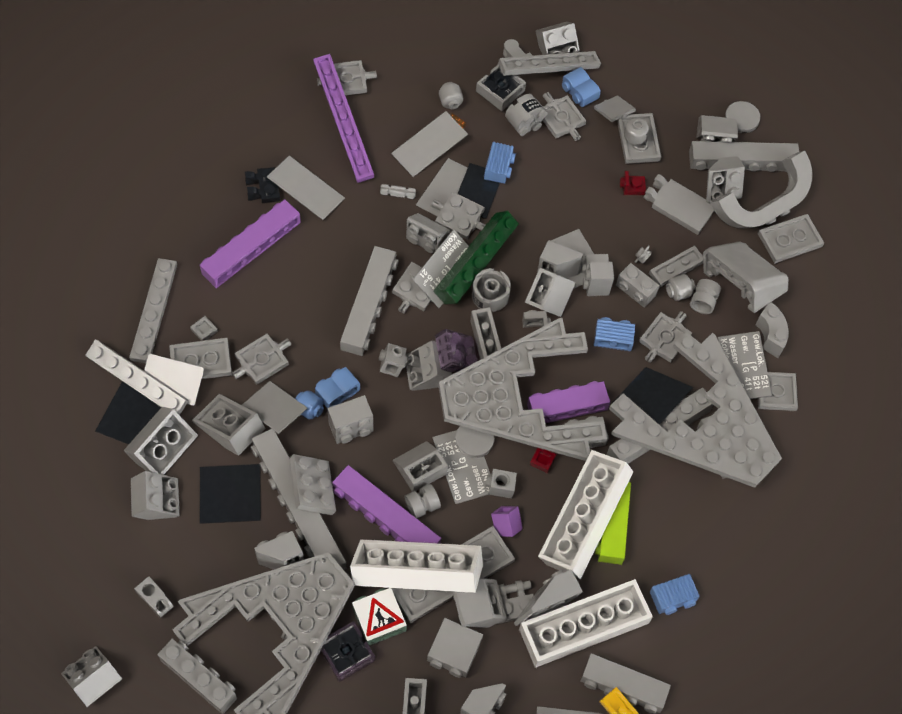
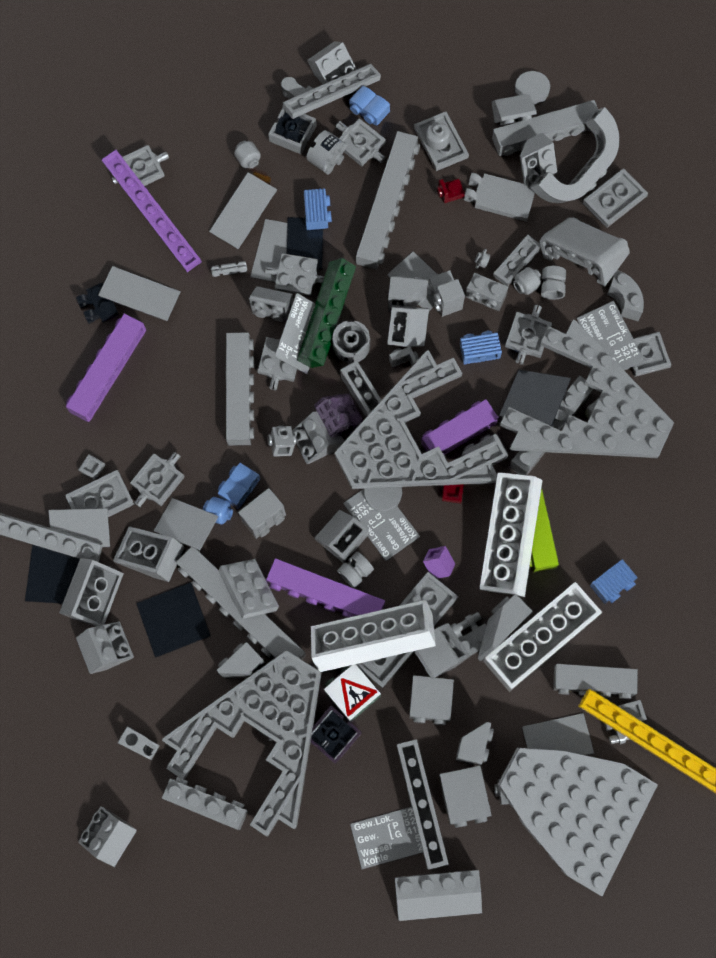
camera: 10 degrees left, 10 degrees up
(153, 310) = (37, 464): light grey plate -> none
(507, 478) = (428, 522): light grey brick -> none
(569, 175) = (387, 199): none -> light grey brick
(614, 108) = (408, 118): light grey piece -> none

